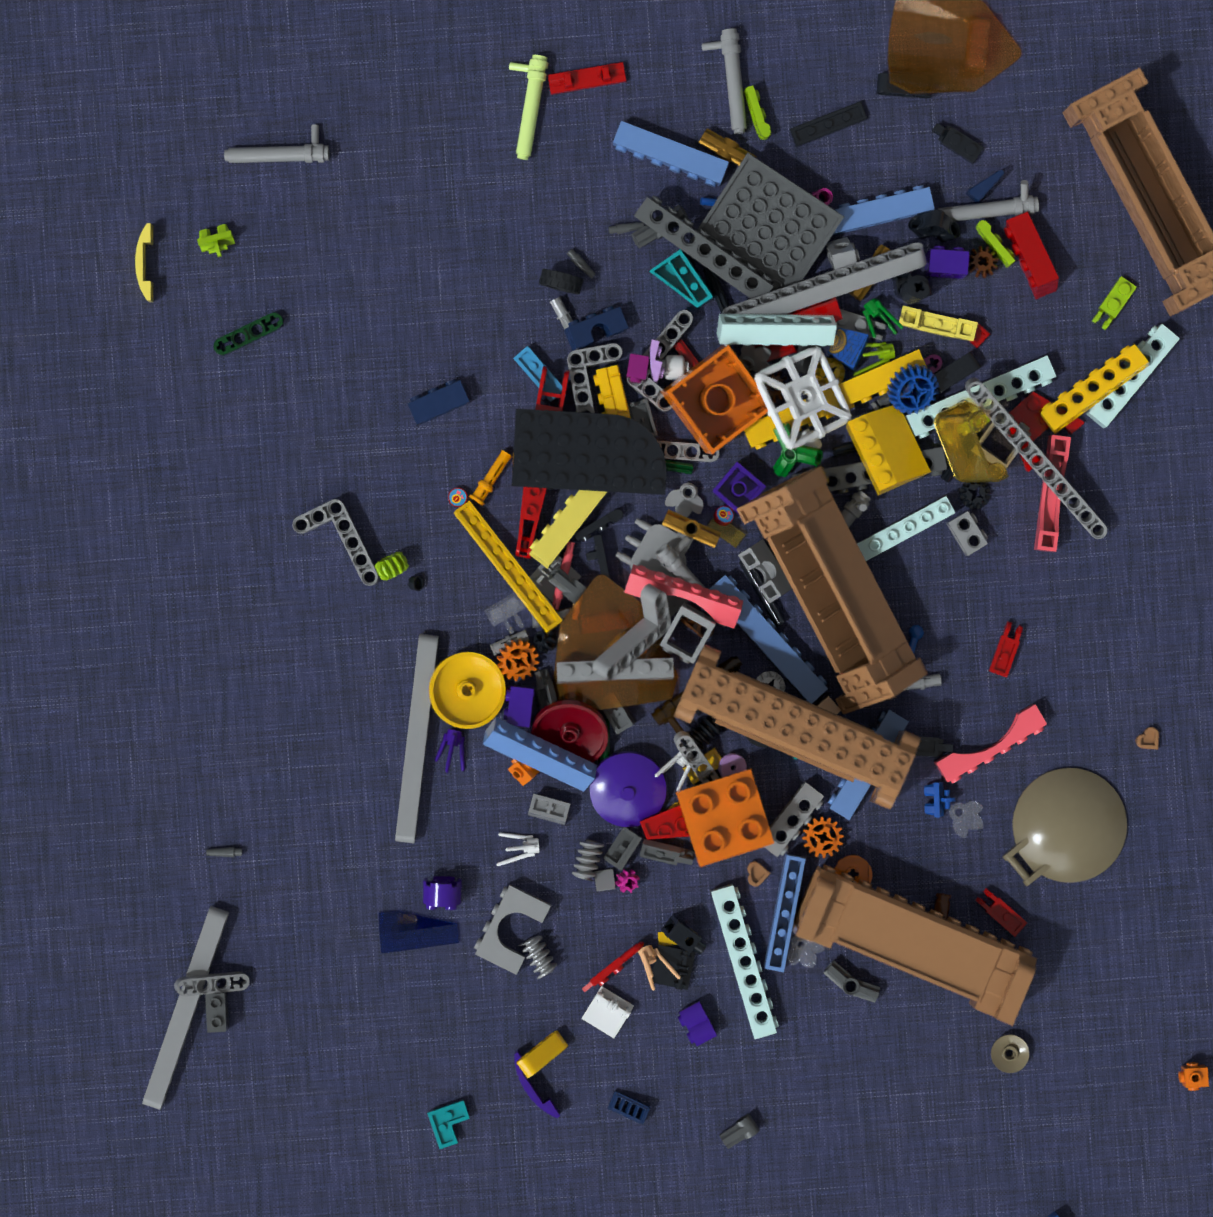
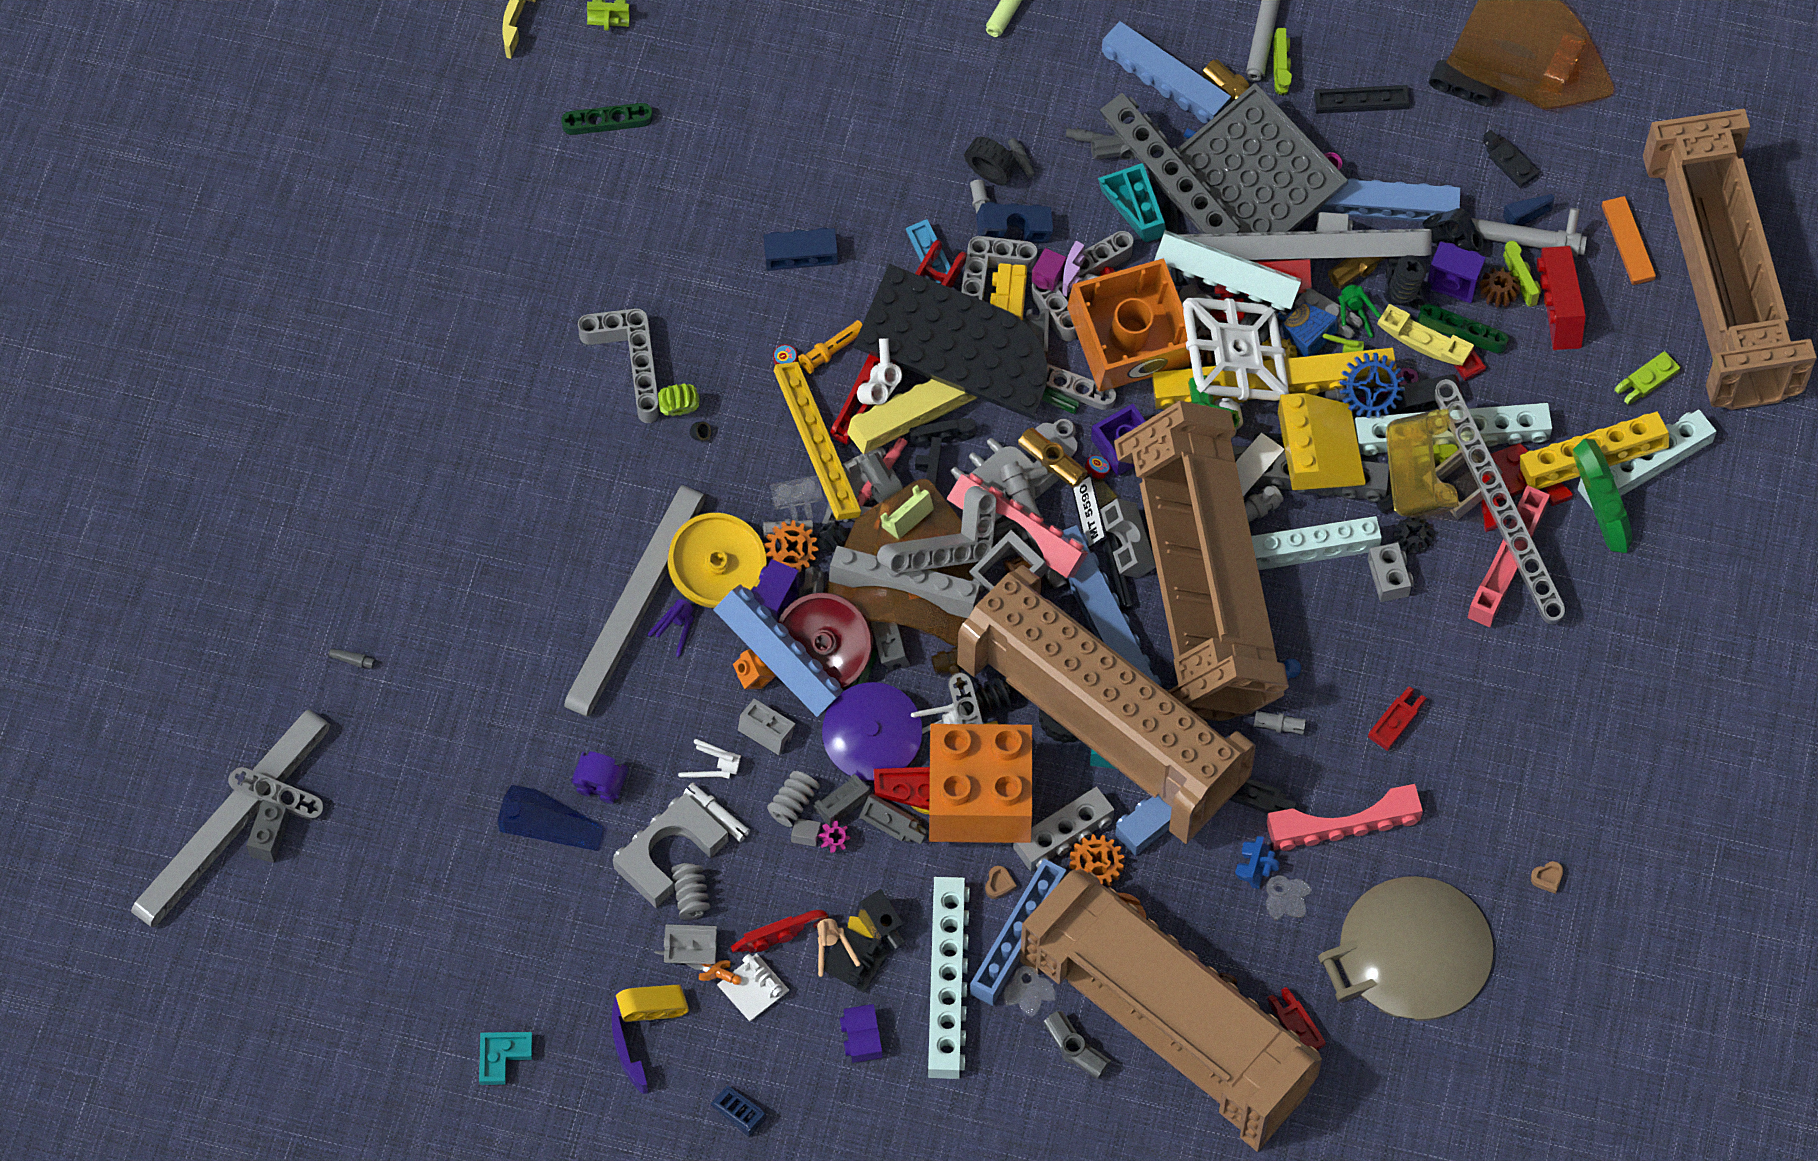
camera: 20 degrees right, 25 degrees down
(535, 887) = (717, 812): none -> white pin
(544, 508) = (879, 383): none -> white beam
(553, 998) = (690, 944): none -> light grey hinge
(561, 1007) = (714, 971): none -> orange piece
(598, 612) = (908, 514): none -> yellowish green hinge
(730, 558) = (1089, 511): none -> white sticker
(842, 478) = (1256, 461): none -> white sticker
(964, 303) = (1431, 317): none -> dark green beam
(1068, 185) = (1628, 240): none -> orange tile
(1111, 425) = (1603, 495): none -> green brick

